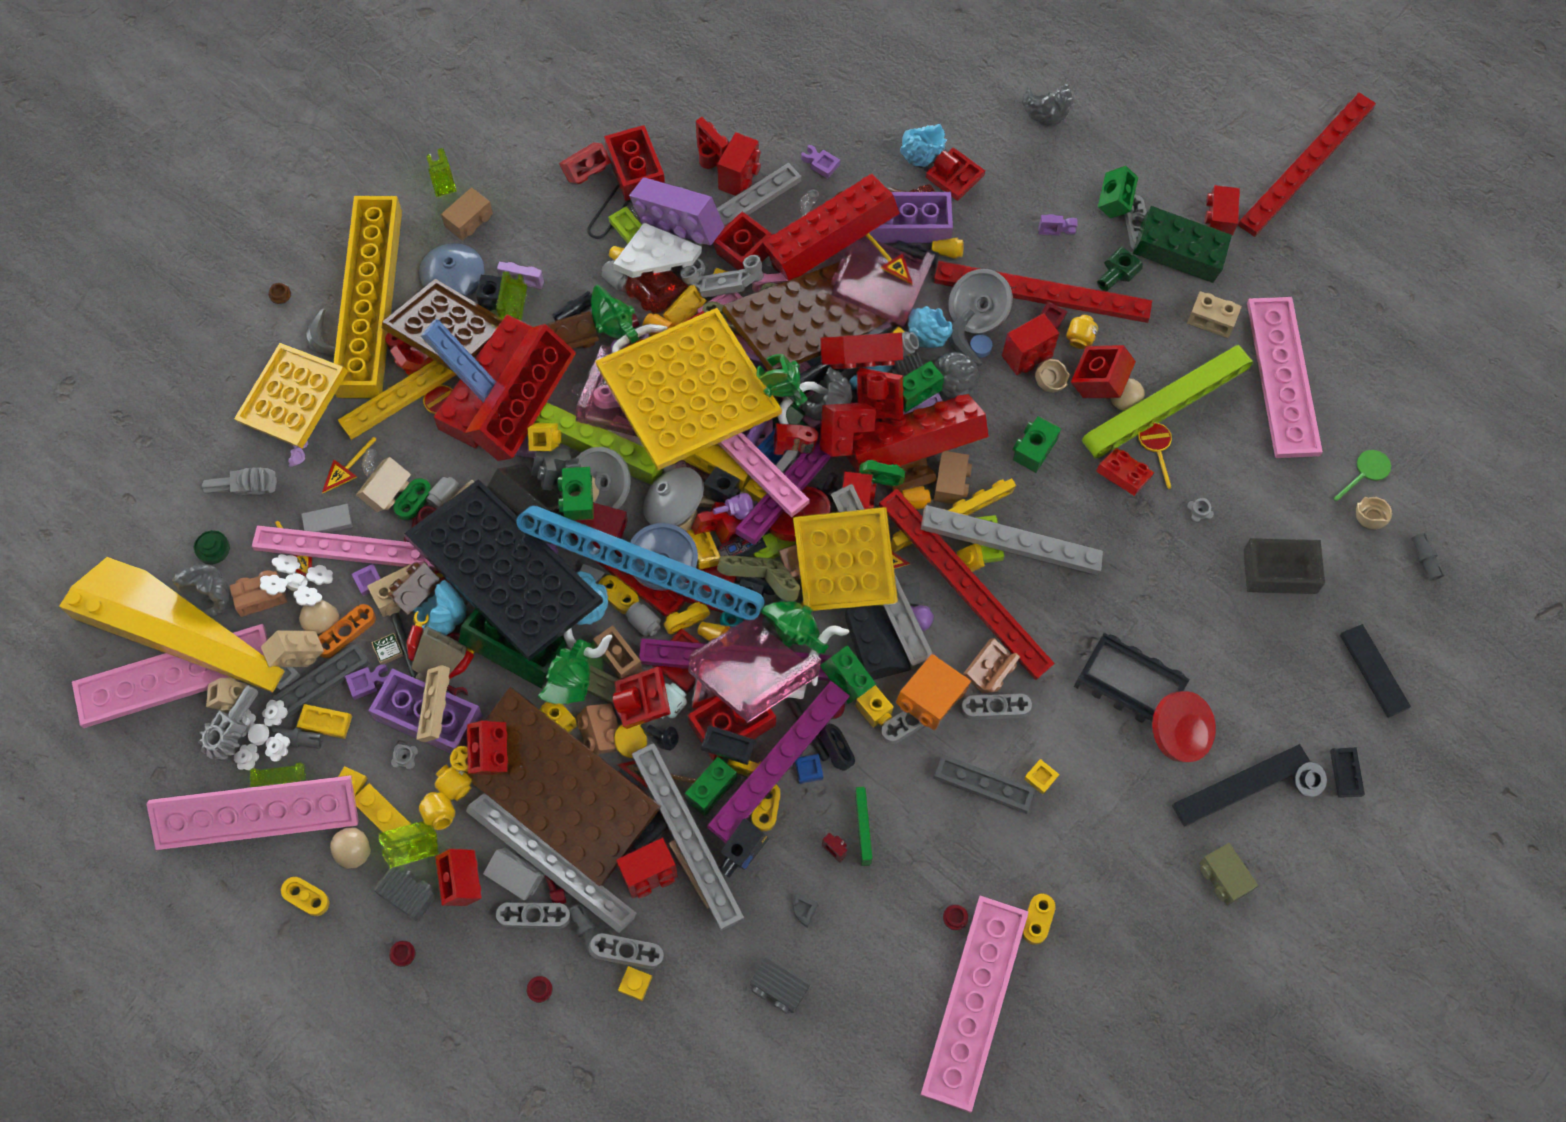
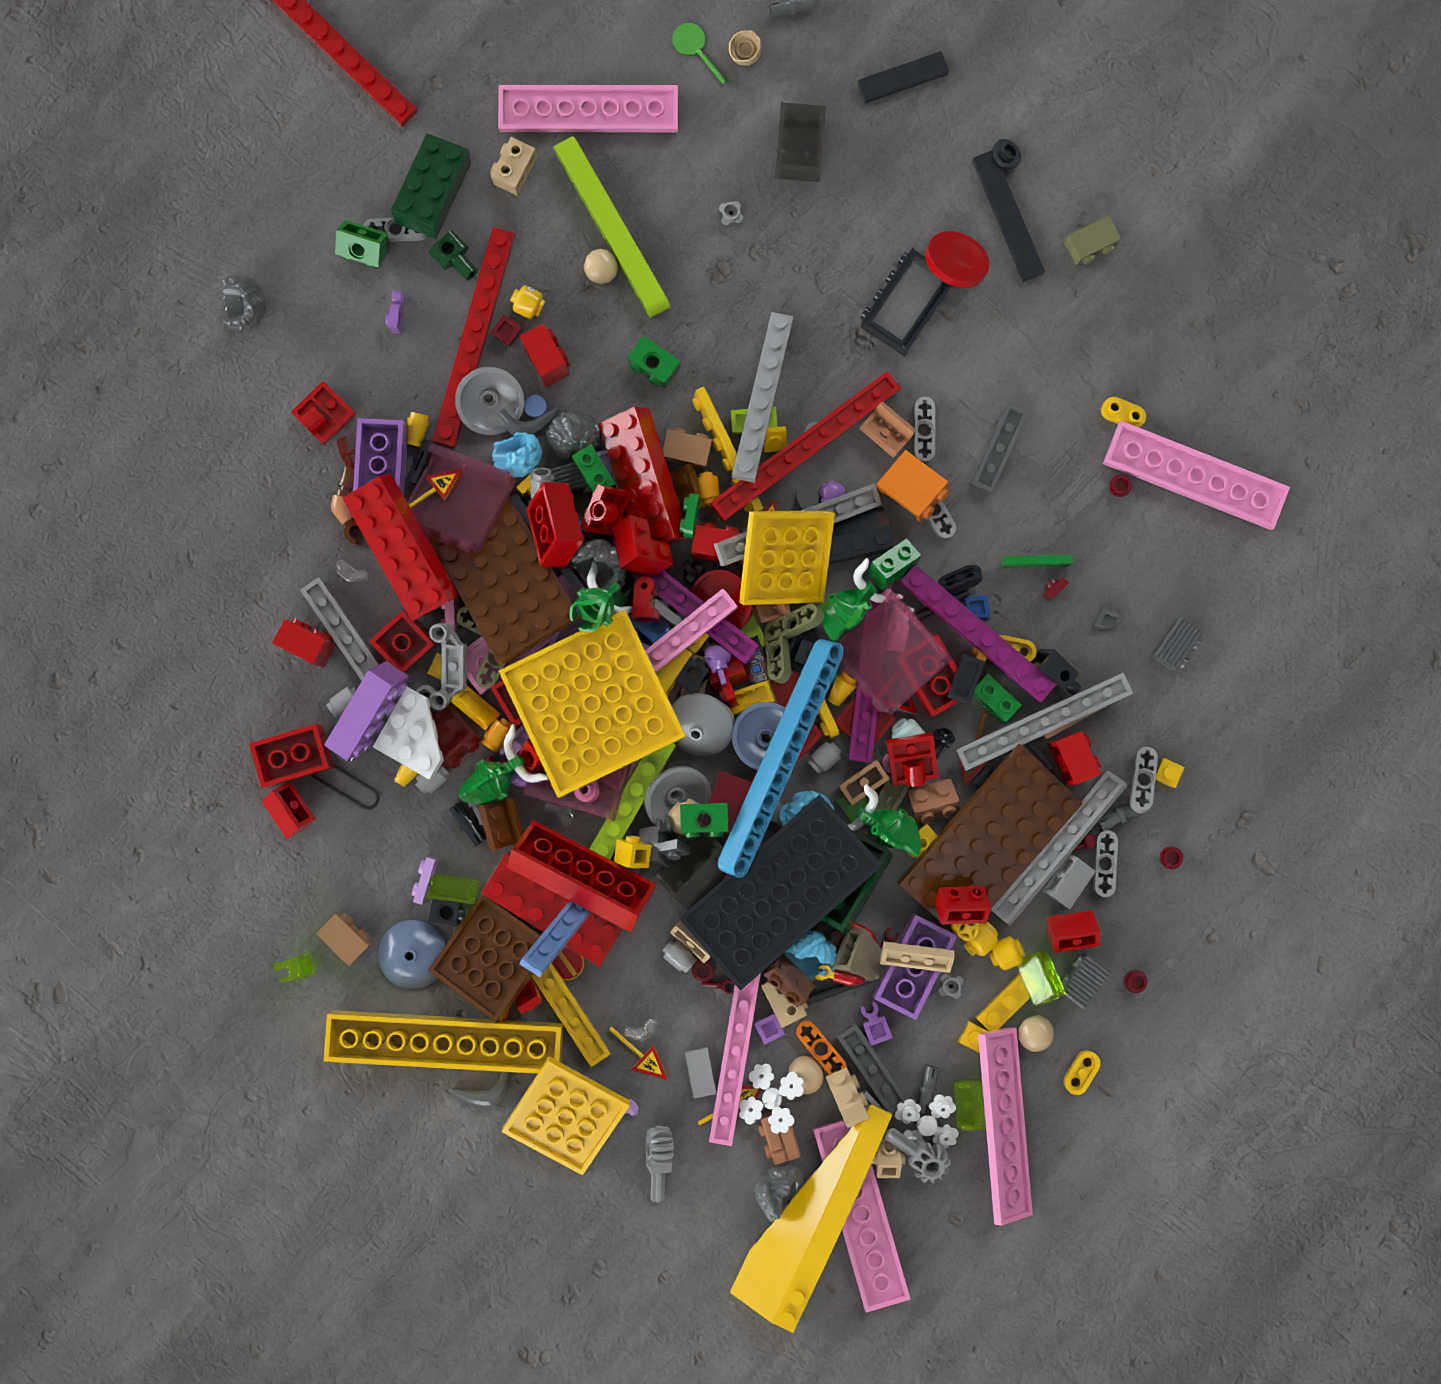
camera: 90 degrees left, 20 degrees up
(211, 547) = (727, 1186): dark green plate -> none
(279, 293) = (432, 1137): reddish brown plate -> none
(324, 721) = (914, 1063): yellow plate -> none
(383, 485) = (670, 1016): tan brick -> none
(387, 649) = (841, 1006): tile -> none
(410, 499) = (683, 986): green plate -> none
(619, 593) = (796, 783): yellow plate -> none
(625, 223) = (369, 766): lime plate -> none
(629, 740) = (948, 773): yellow piece -> none
(710, 143) = (268, 675): red plate -> none
(822, 163) = (300, 552): medium lavender plate -> none
(874, 707) = (925, 540): yellow brick -> none
(923, 144) = (287, 442): medium azure hair -> none
(1041, 776) = (995, 395): yellow plate -> none
(1052, 376) = (578, 338): tan hair -> none
(1103, 371) = (581, 285): red brick -> none
(1125, 471) = (690, 279): red plate -> none
(1156, 440) = (652, 245): piece -> none
(1223, 208) = (389, 138): red brick -> none
(1347, 772) = (1001, 119): black plate -> none

